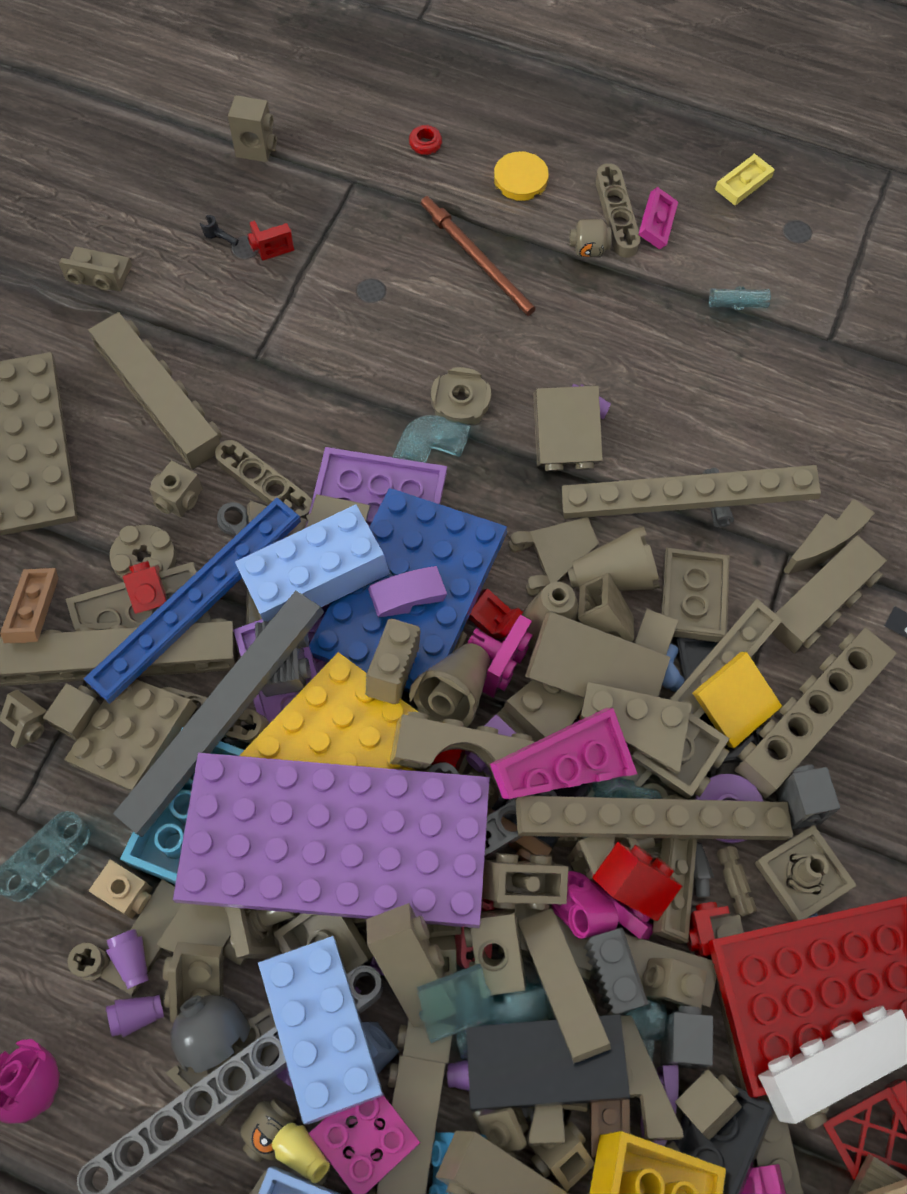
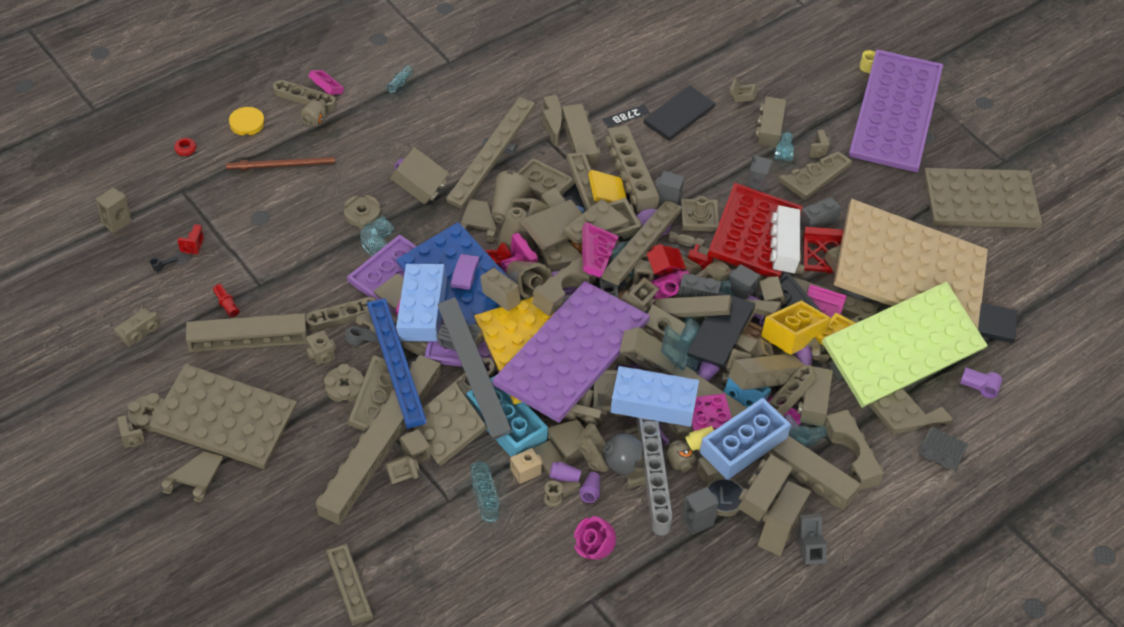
camera: 60 degrees left, 15 degrees down
(29, 606) = (341, 435): medium nougat plate -> none
(144, 587) = (371, 381): red bracket -> none
(196, 334) = (226, 301): none -> red axle
(744, 179) = (332, 39): light yellow plate -> none

